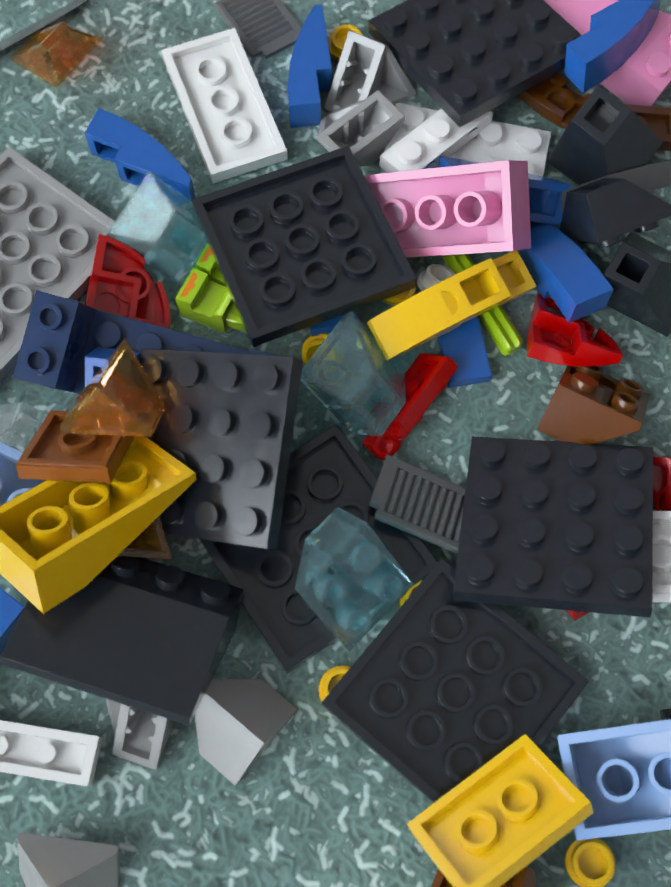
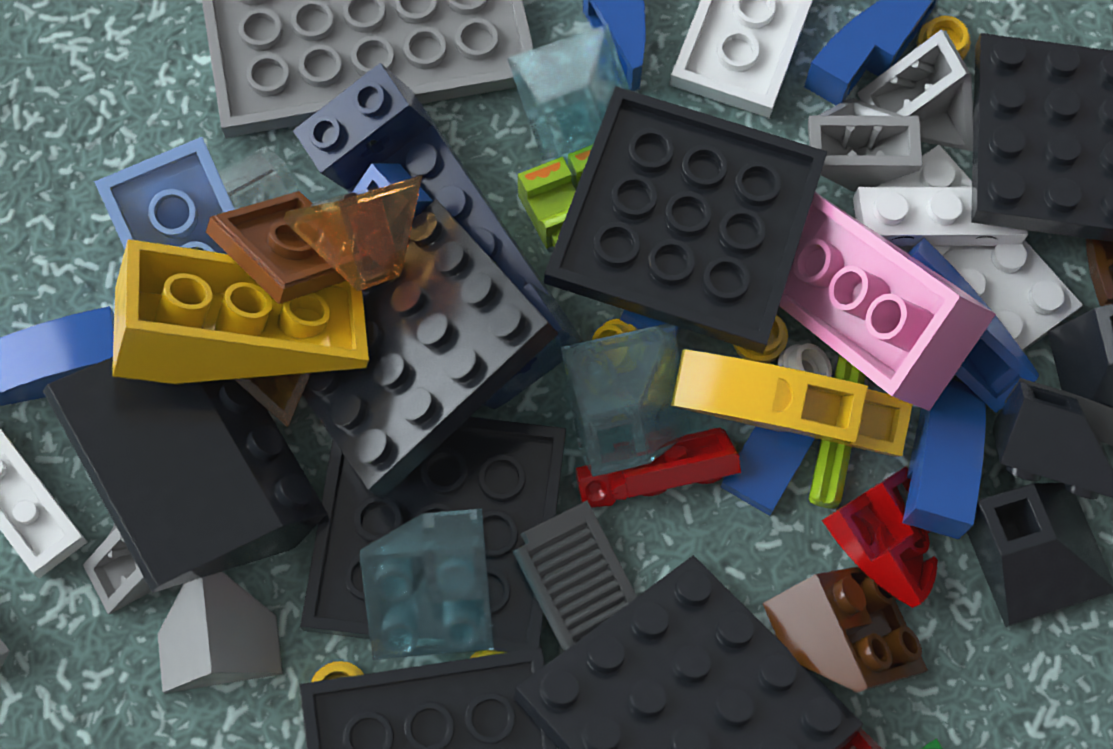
camera: 40 degrees right, 0 degrees up
(124, 286) = (485, 125): red brick -> none

